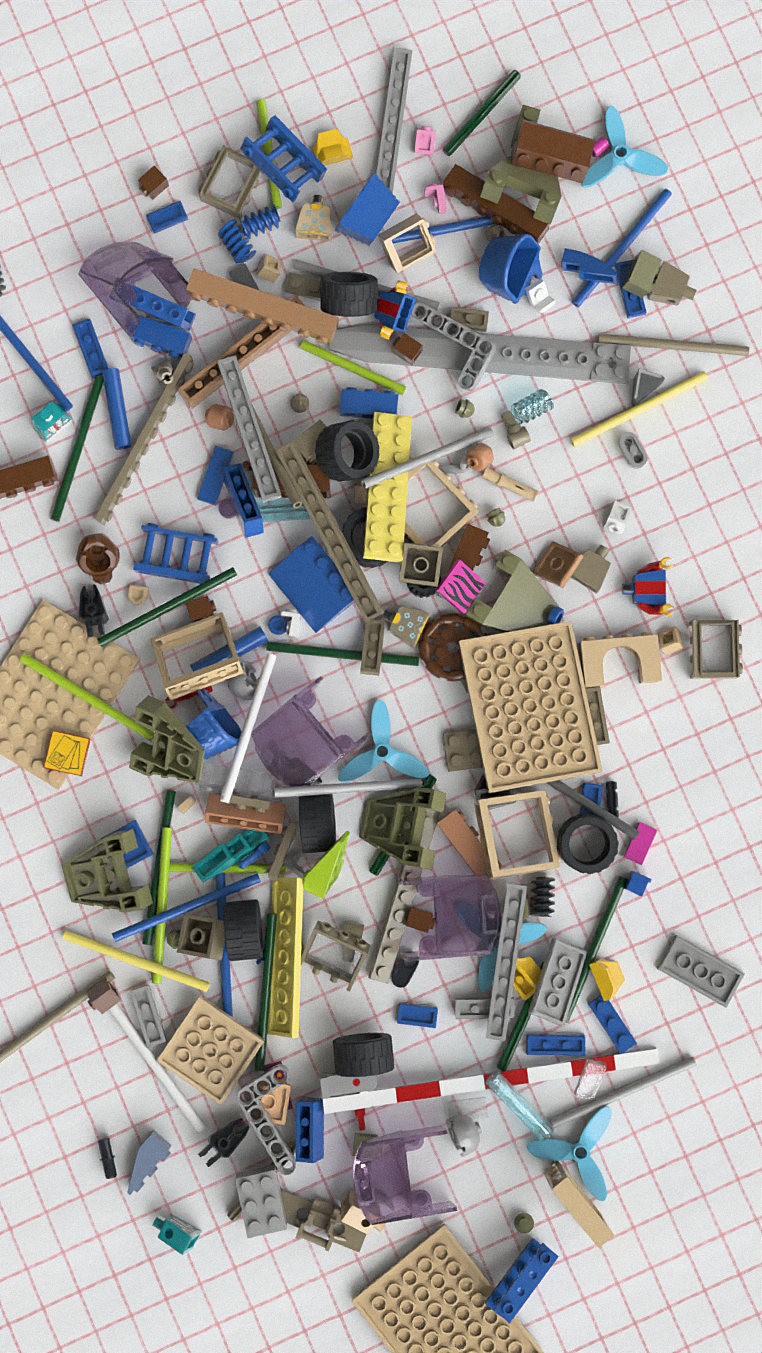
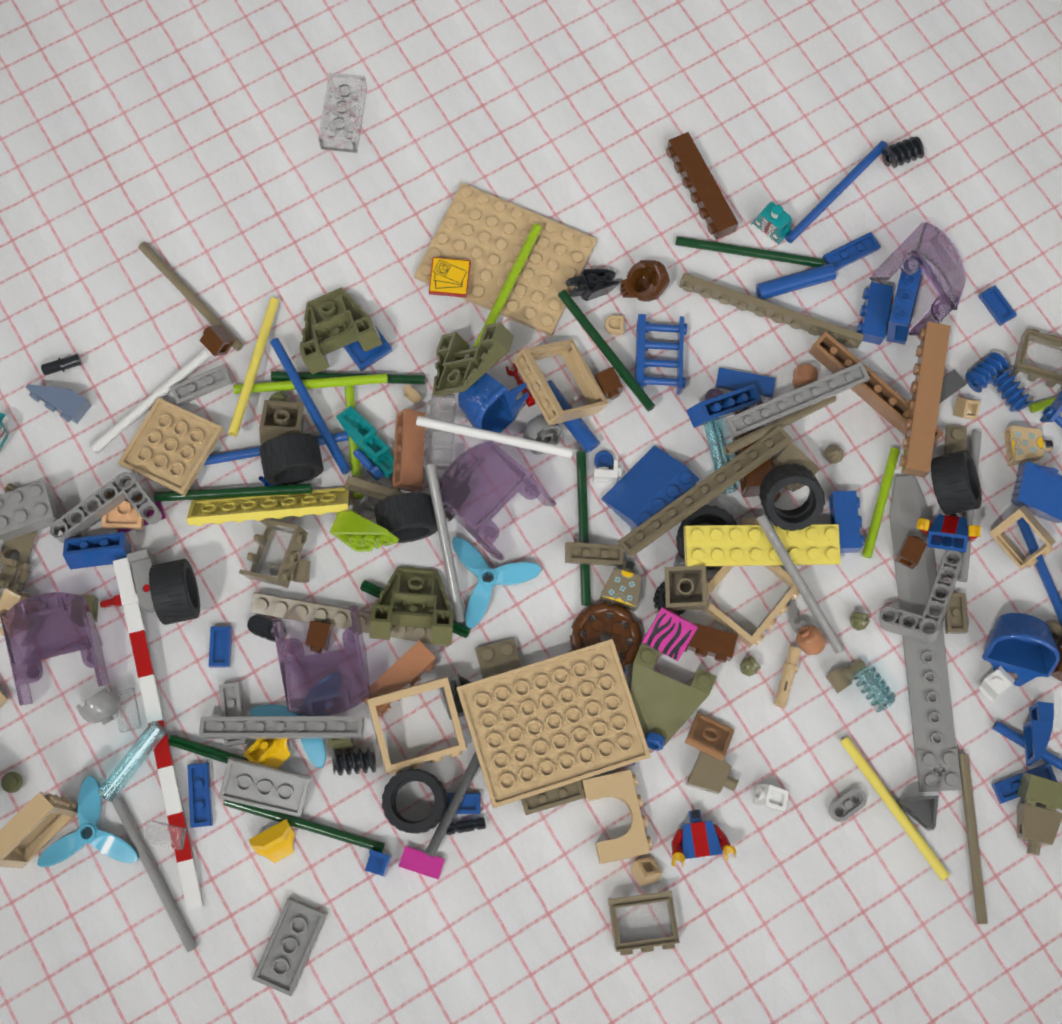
camera: 80 degrees right, 10 degrees down
(152, 183) = (1028, 286): reddish brown brick -> none
(163, 372) = (841, 318): dark tan pin -> none
(224, 1141) = (79, 468): black hinge -> none
(242, 802) = (418, 442): dark tan plate -> none
(612, 1024) = (225, 854): blue plate -> none

